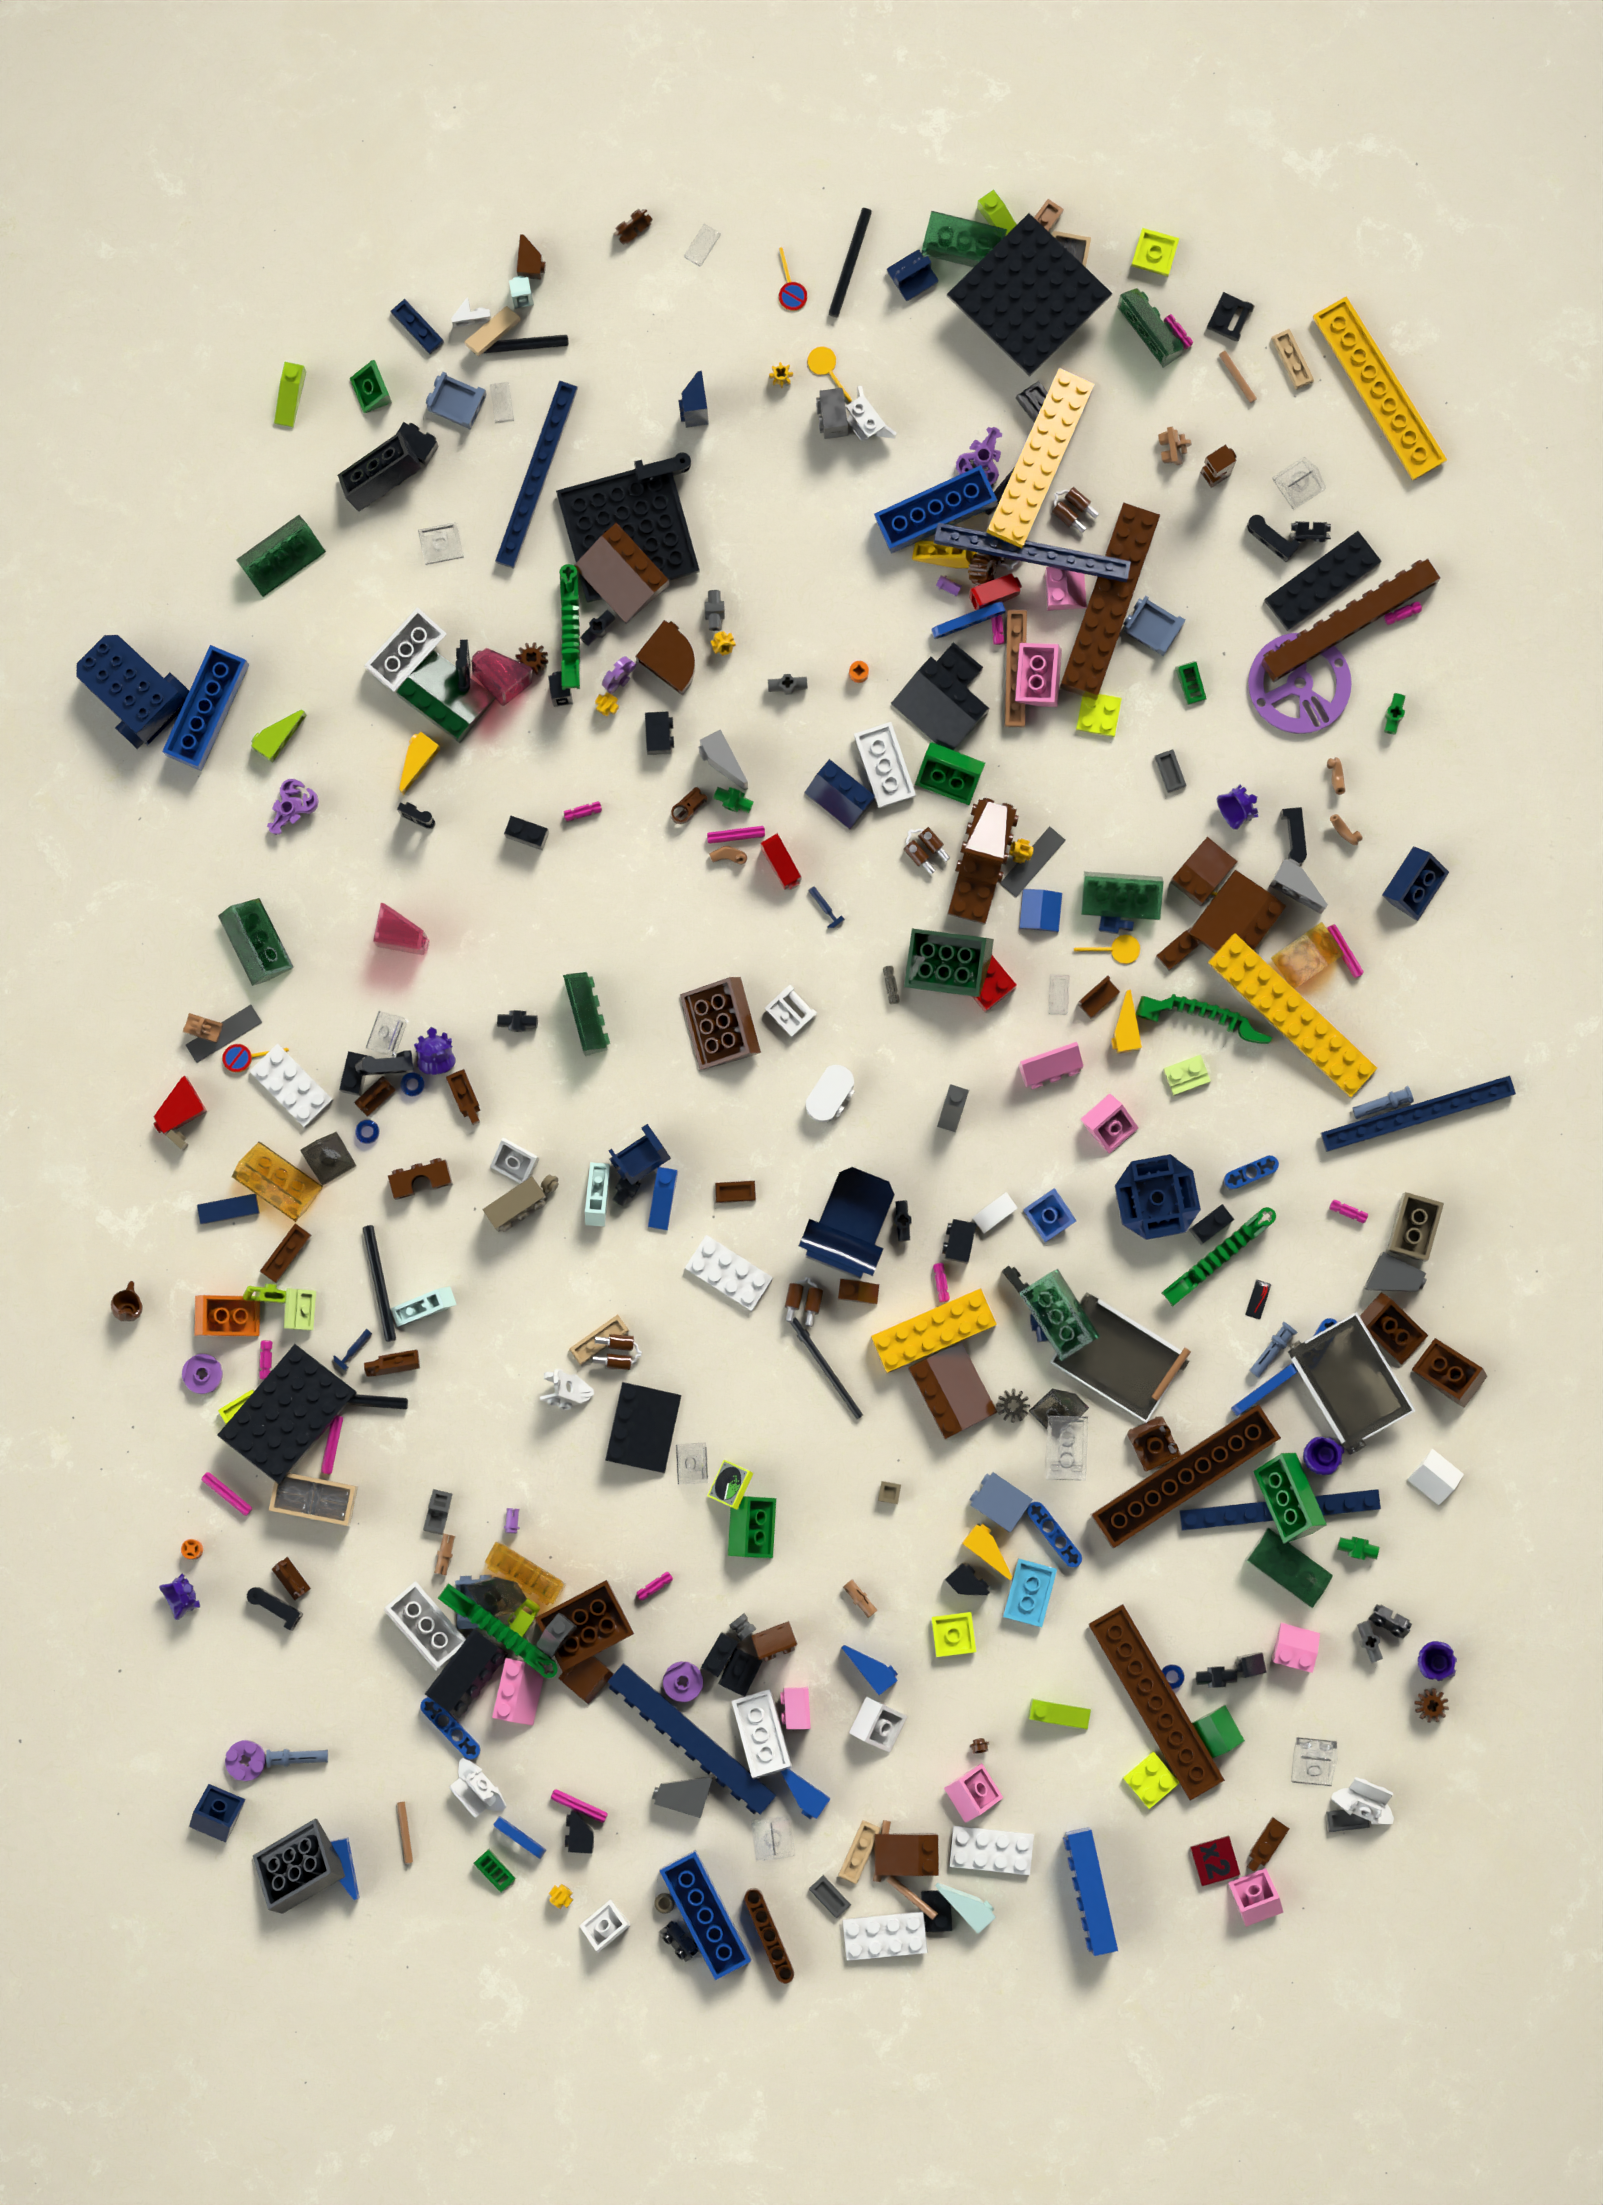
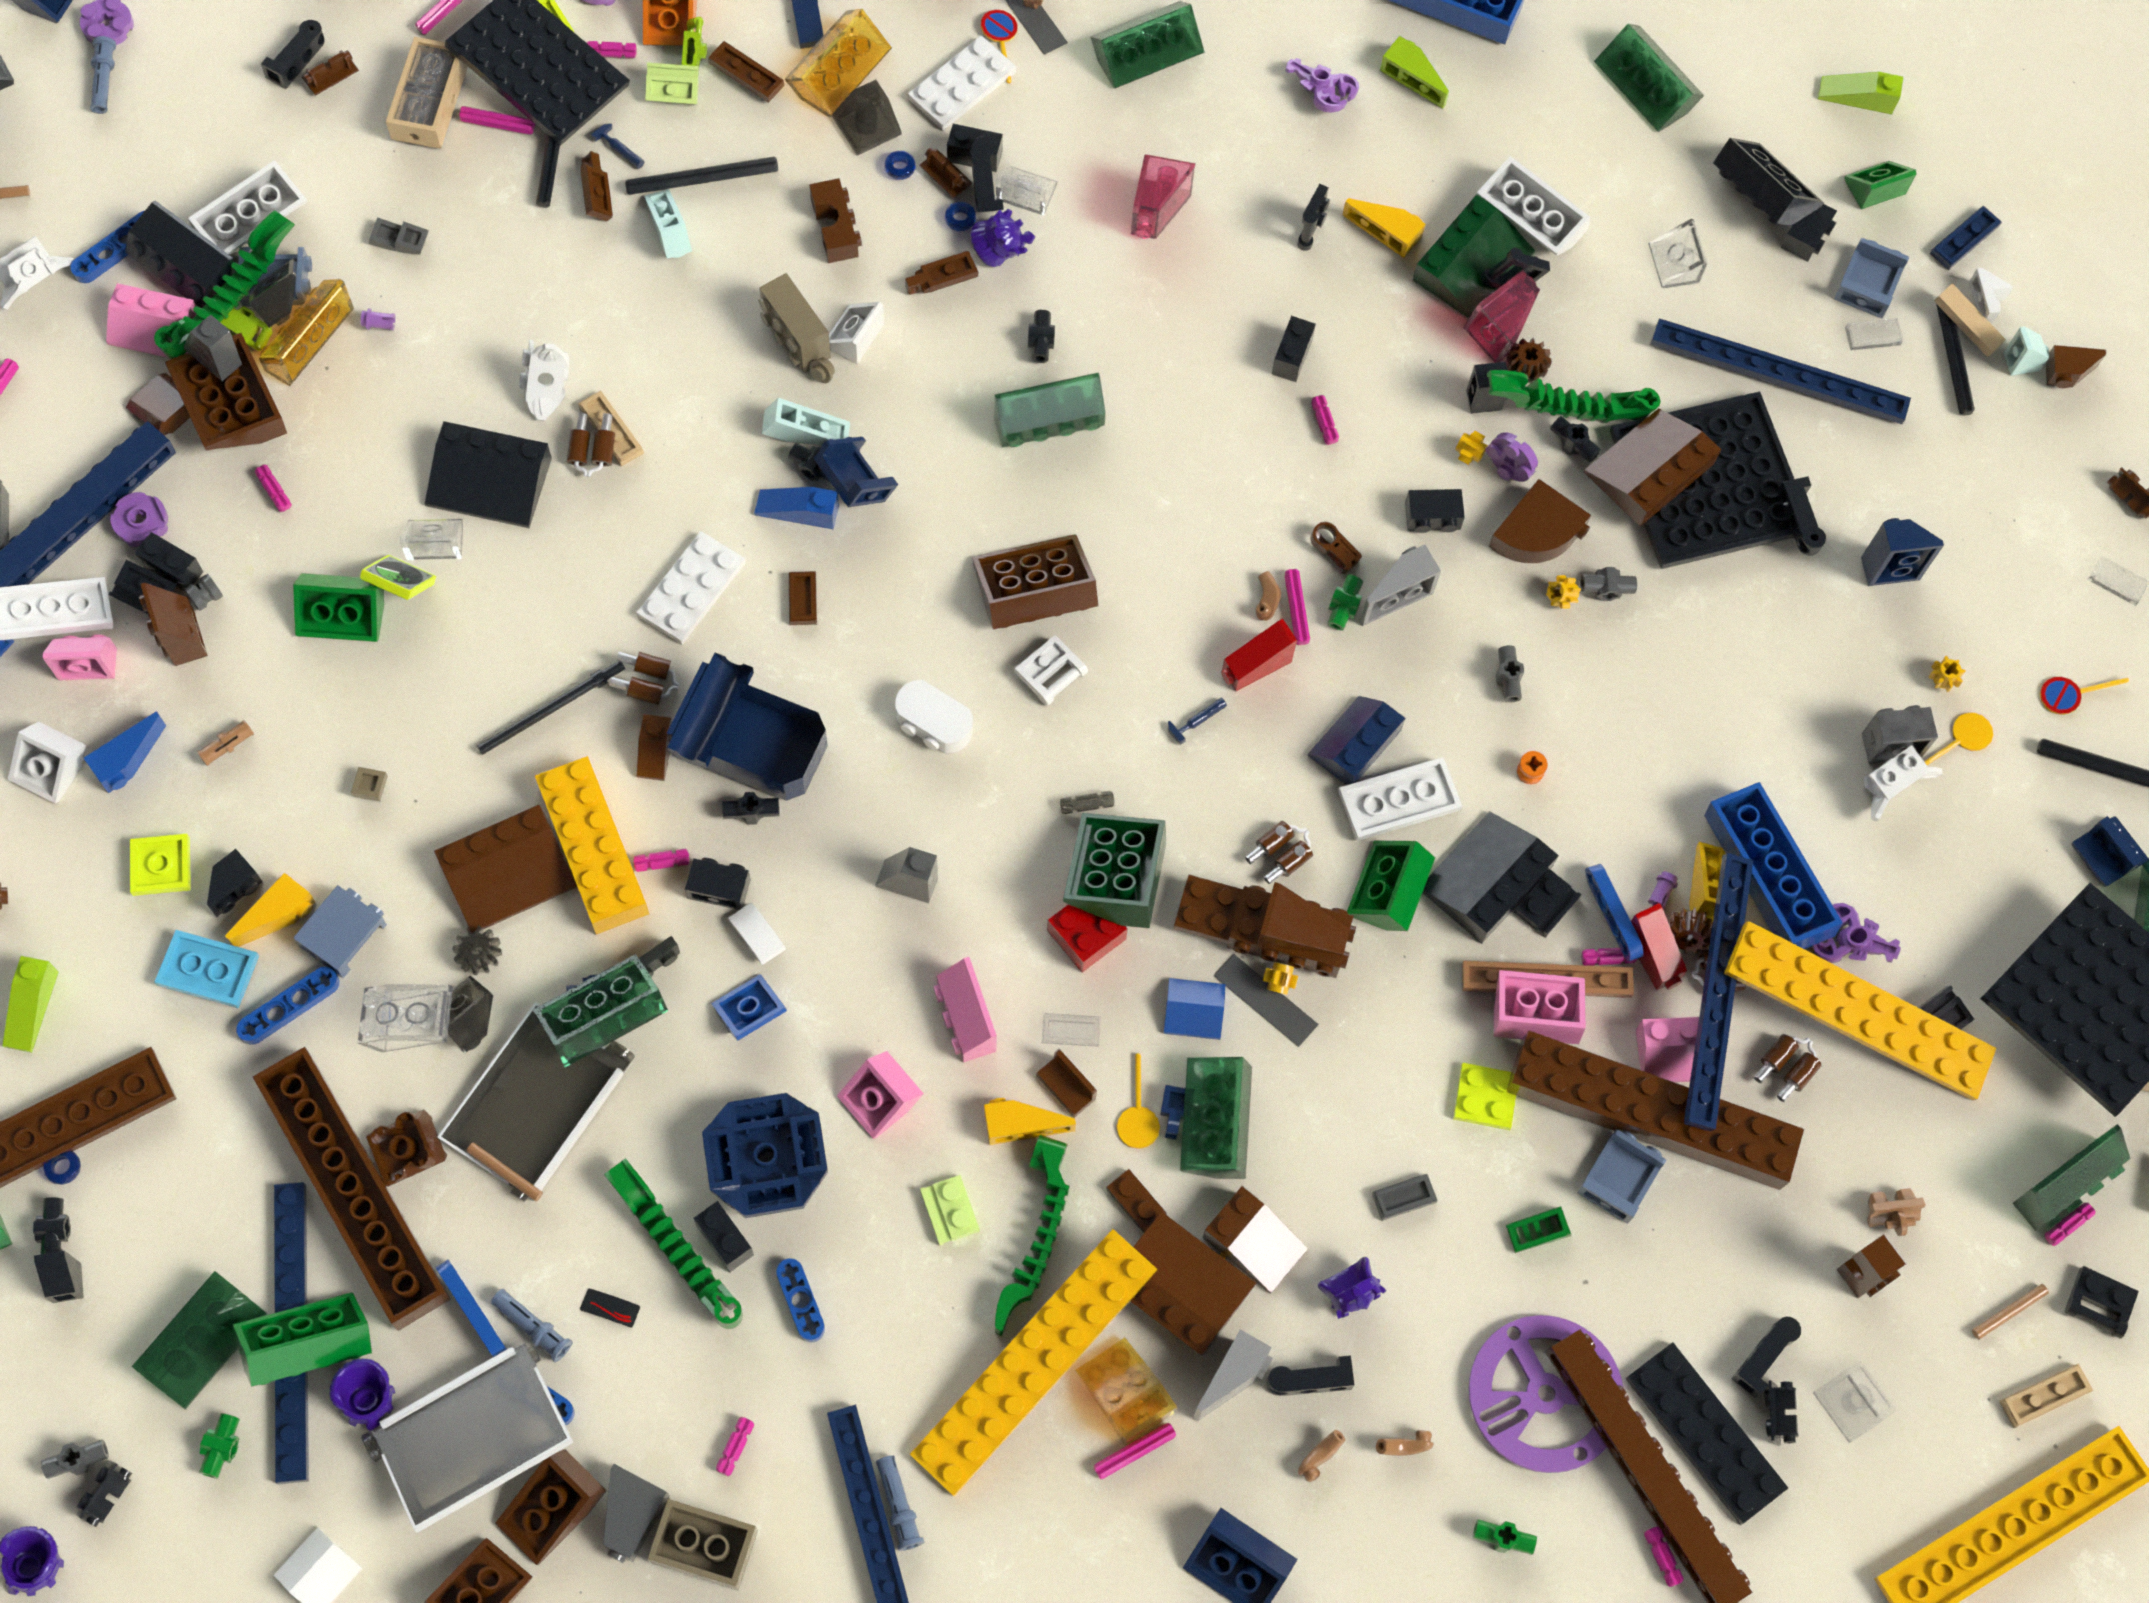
camera: 85 degrees right, 15 degrees down
(444, 1554) = (342, 243): medium nougat pin -> none
(1296, 1647) = (78, 1347): bright pink slope -> none

